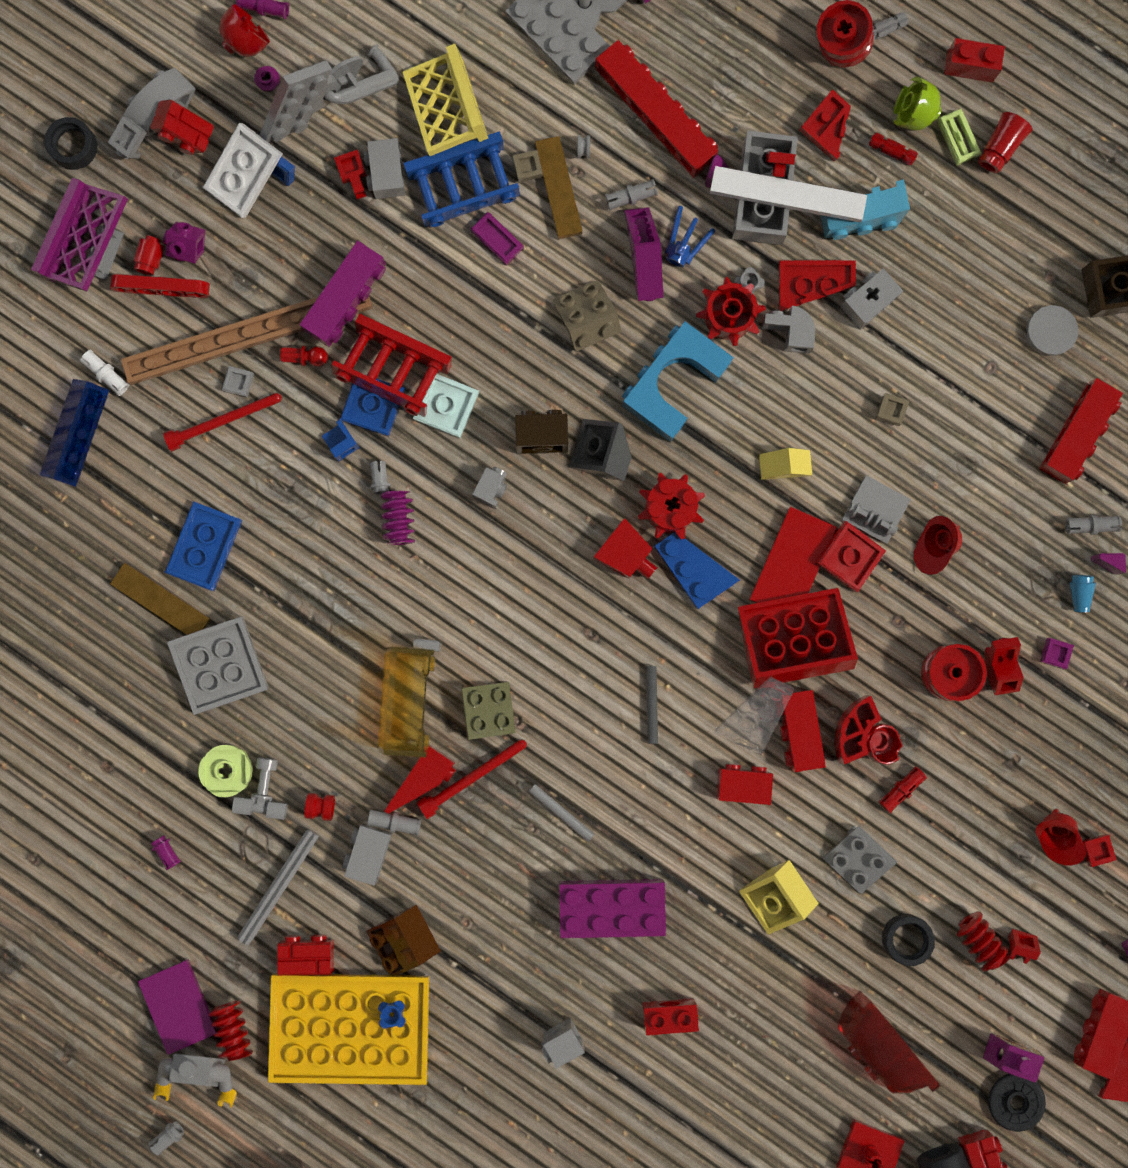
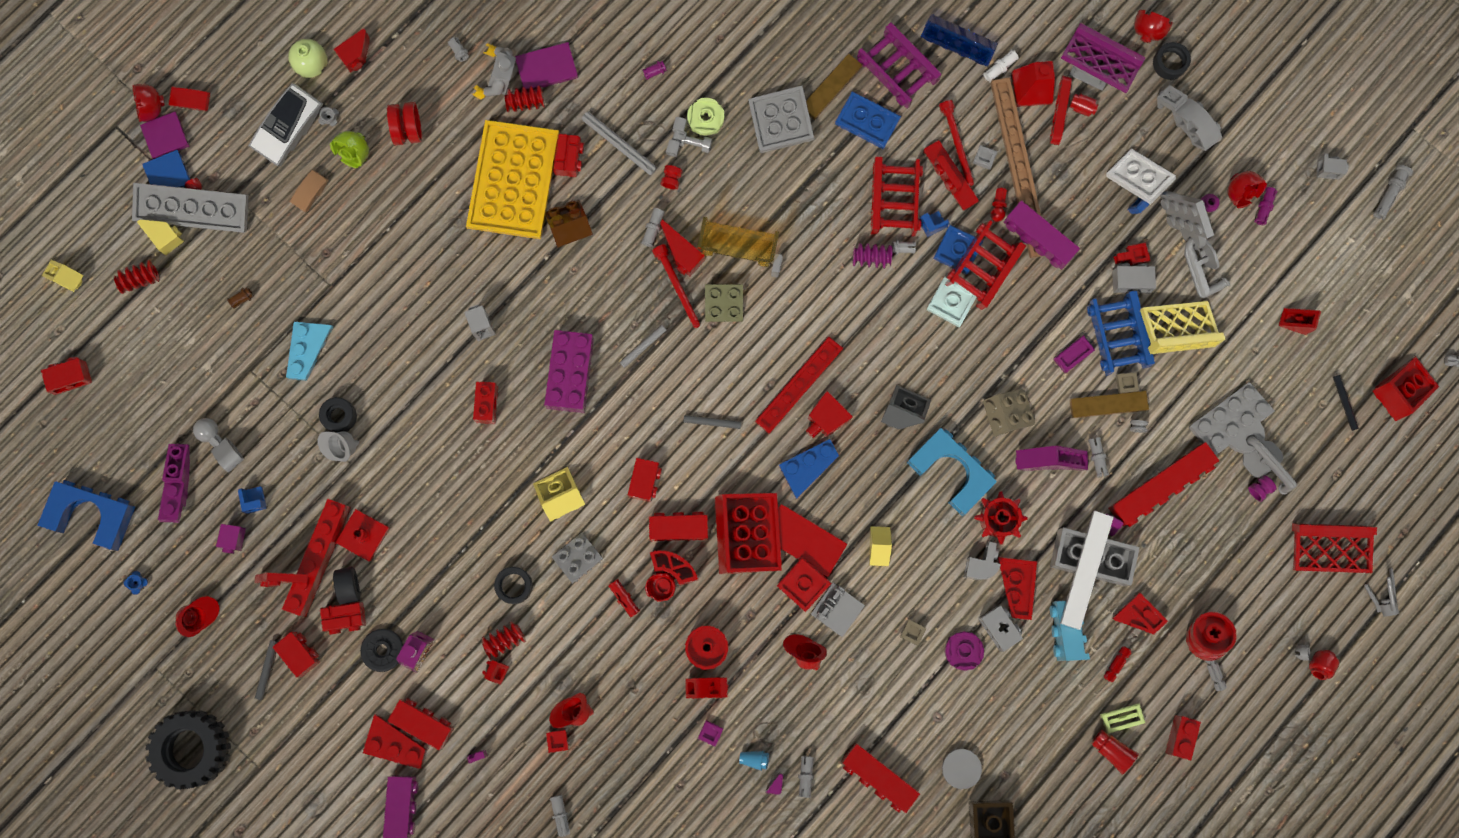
camera: 100 degrees right, 5 degrees down
(25, 173) = (1151, 26): none -> red cylinder
(112, 488) = (904, 48): none -> magenta fence
(126, 325) = (1034, 84): none -> red slope
(182, 127) = (1176, 137): red brick -> none
(184, 242) = (1091, 130): magenta brick -> none
(270, 424) = (951, 175): none -> red bracket
(323, 517) = (879, 204): none -> red fence
(367, 854) = (633, 206): light grey brick -> none
(388, 1021) = (514, 203): blue plate -> none
(490, 486) = (887, 325): light grey brick -> none
(541, 432) = (923, 364): dark brown brick -> none
(586, 595) = (799, 385): none -> red tile
(667, 491) = (859, 465): red brick -> none
(679, 253) = (1051, 486): blue plant -> none
(750, 275) = (1027, 538): light grey plate -> none
(757, 716) = (693, 495): clear wing -> none
(780, 161) = (1113, 566): red tile -> none
(882, 1048) = (438, 553): clear red windscreen -> none
(904, 342) = (964, 651): none -> magenta tile
(917, 105) = (1149, 687): lime cylinder -> none

